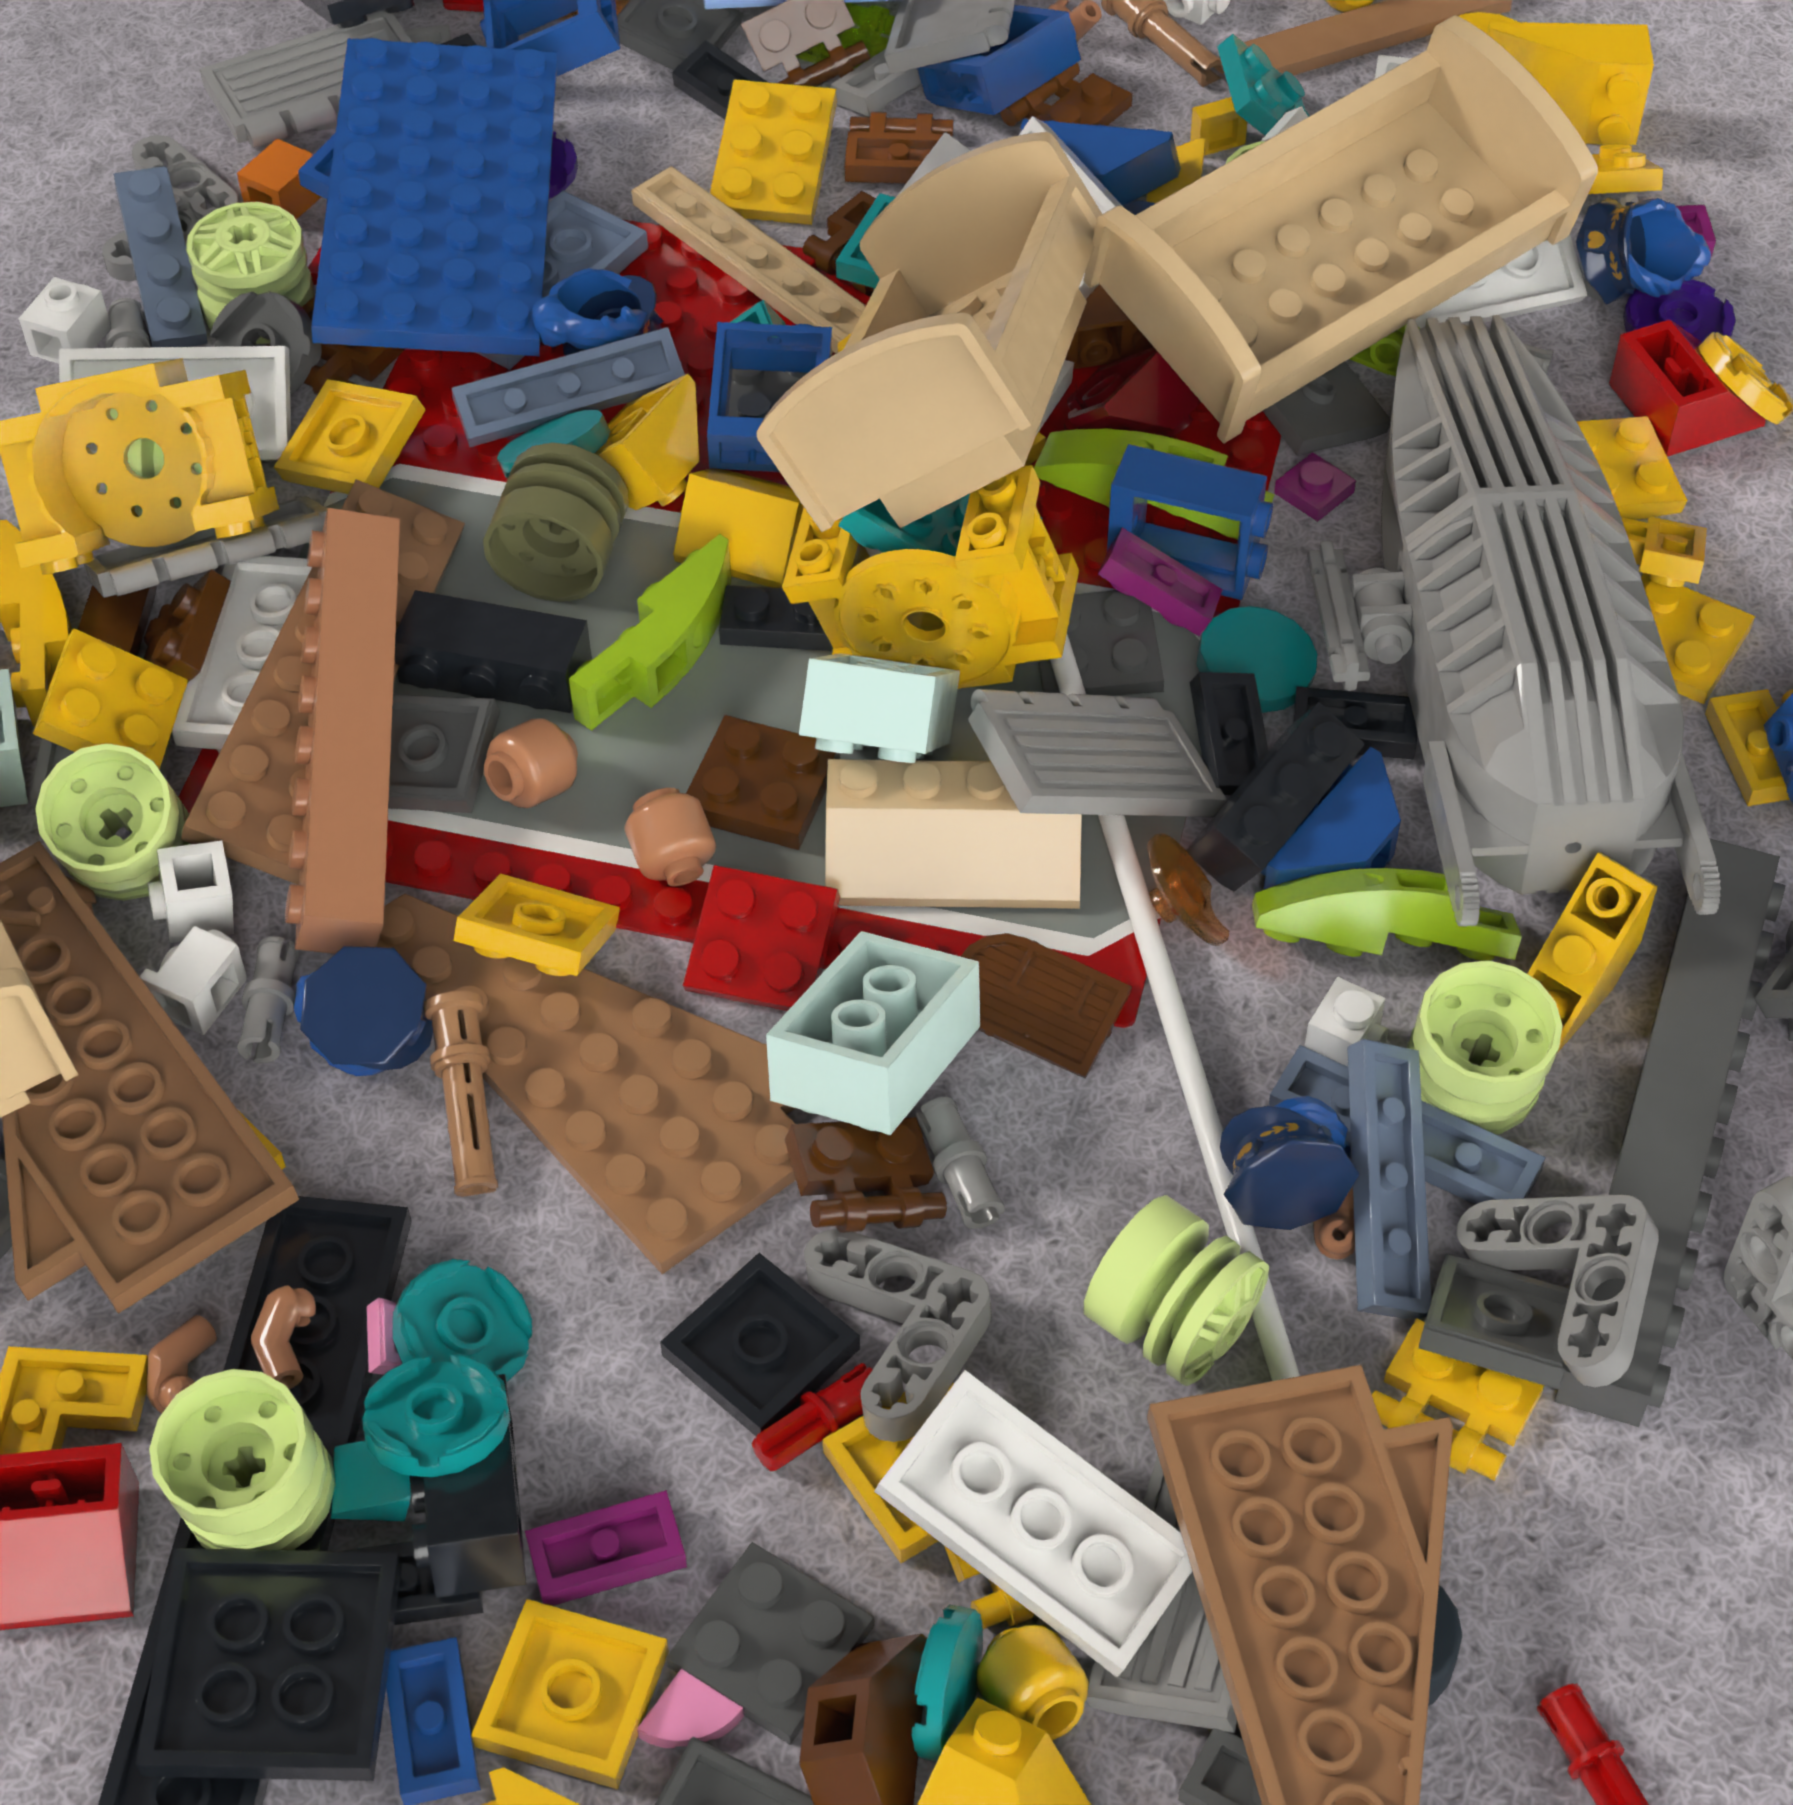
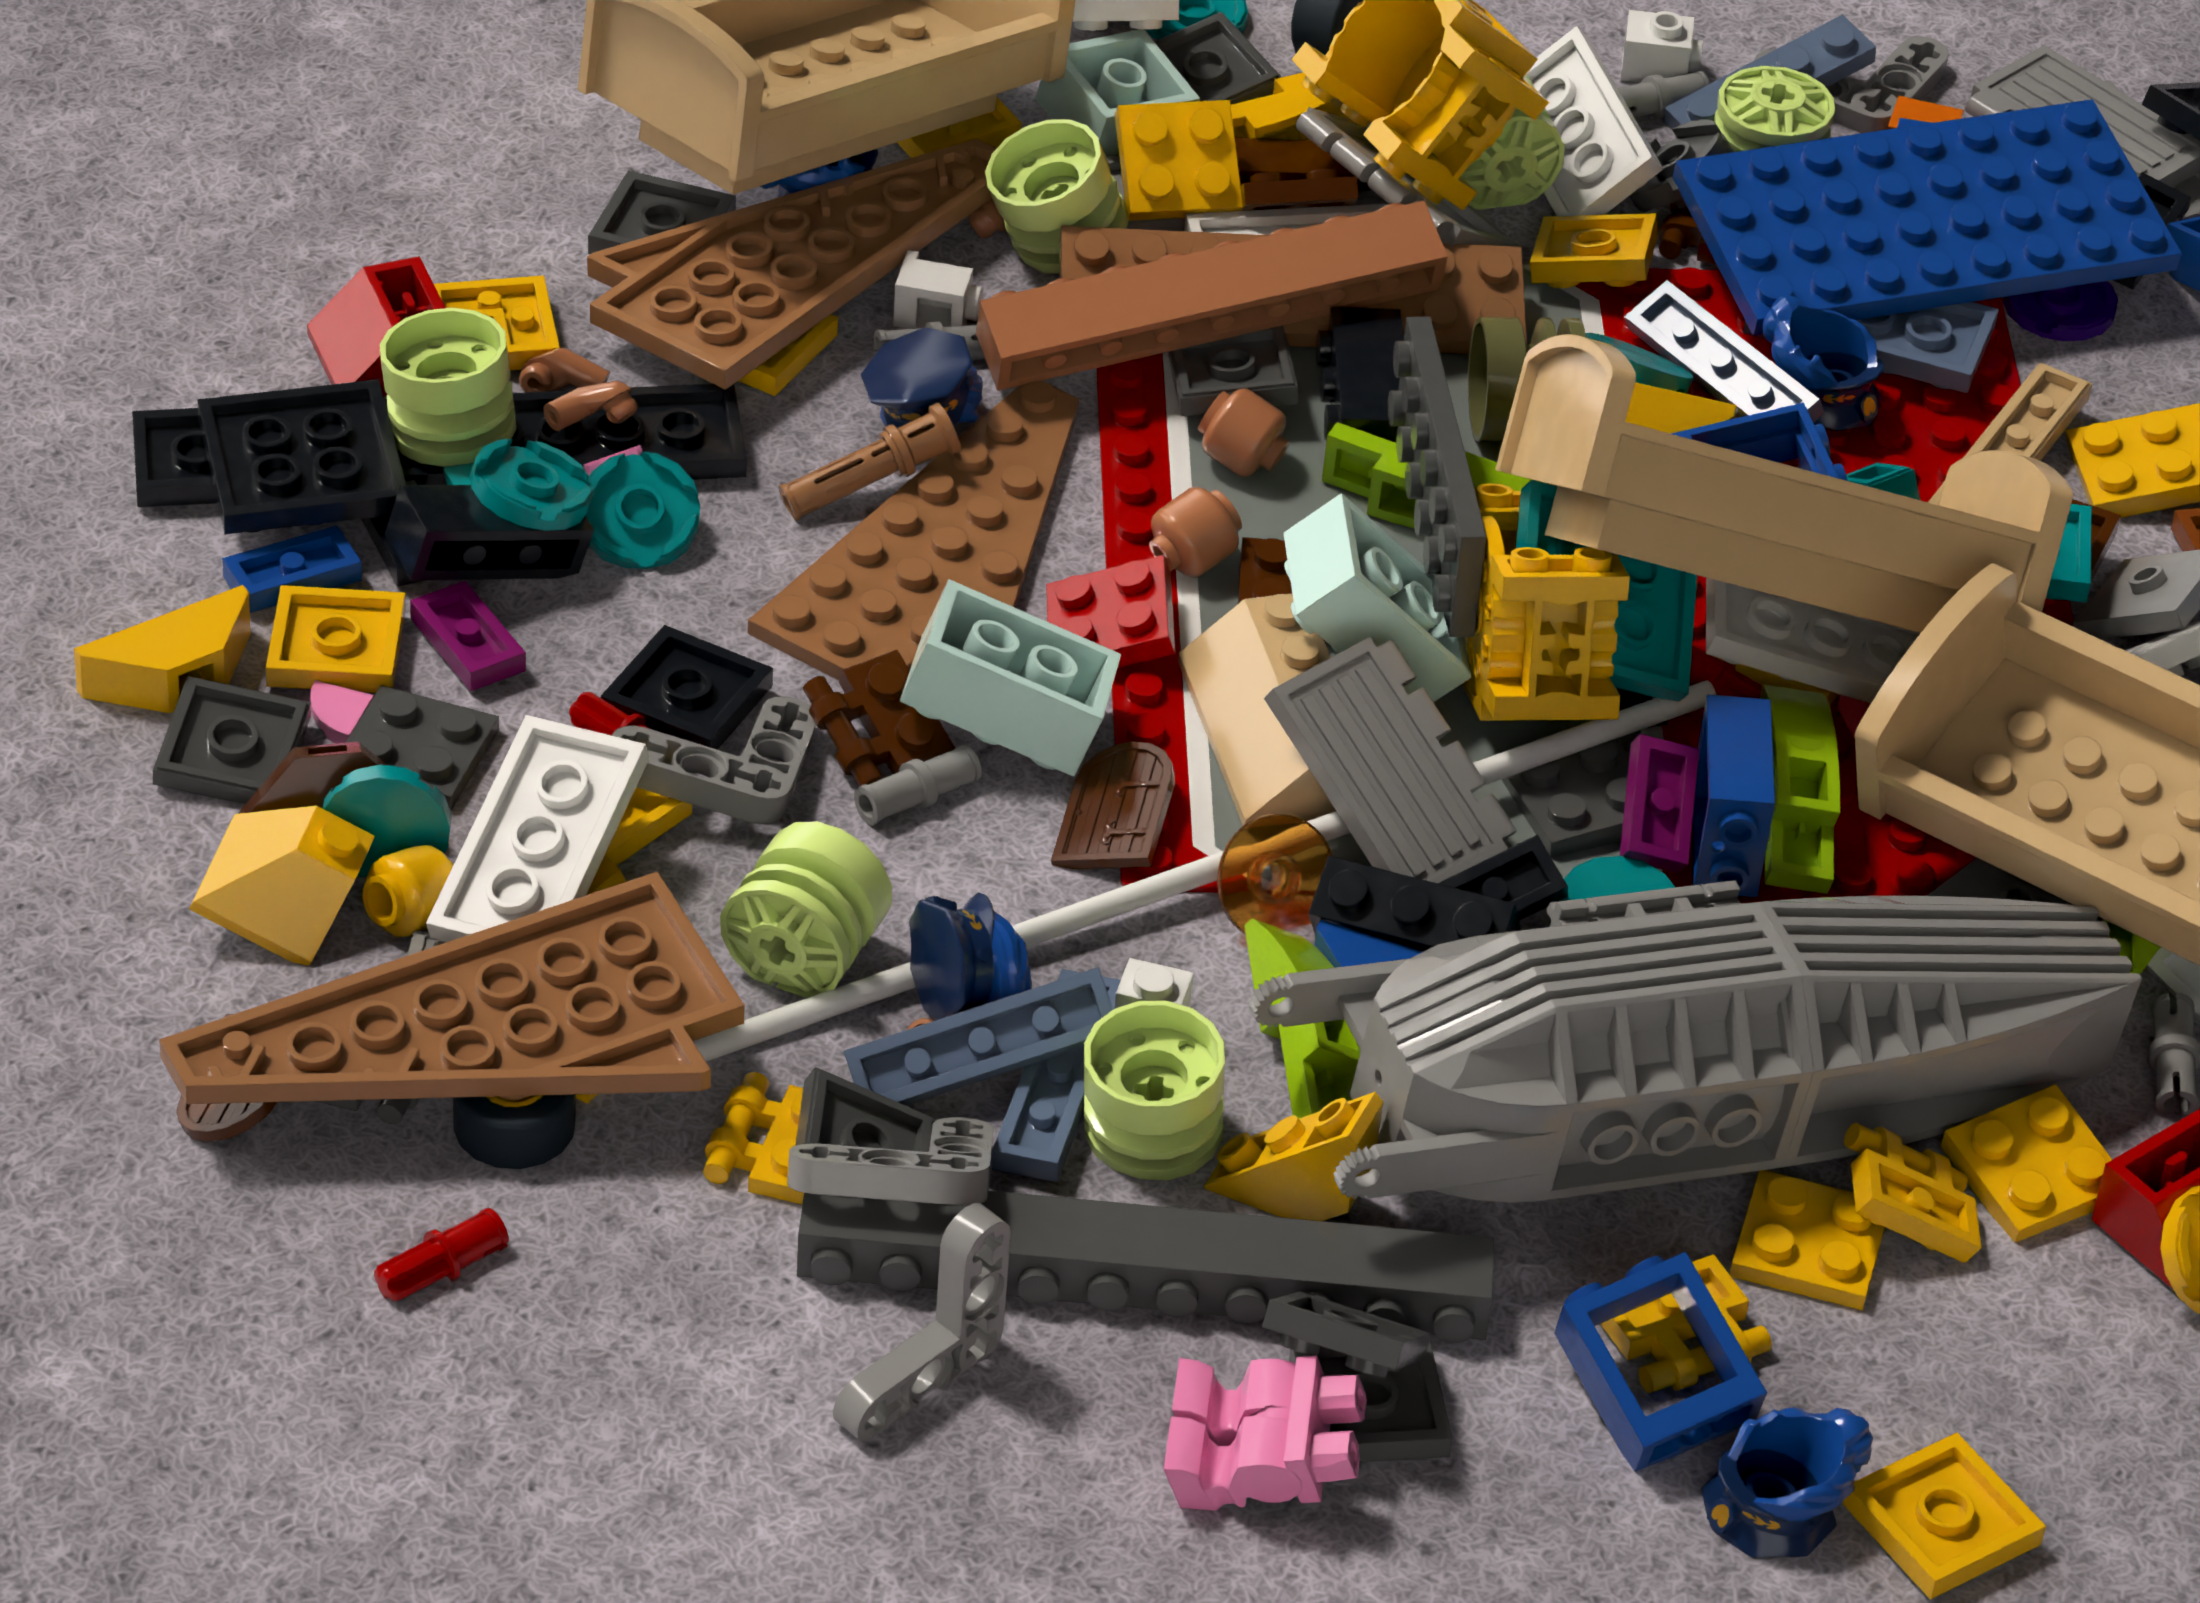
camera: 70 degrees right, 10 degrees down
(192, 890) = (1013, 257): white brick -> none
(536, 925) = (1061, 469): yellow plate -> none
(749, 595) = (1437, 477): none -> dark grey plate

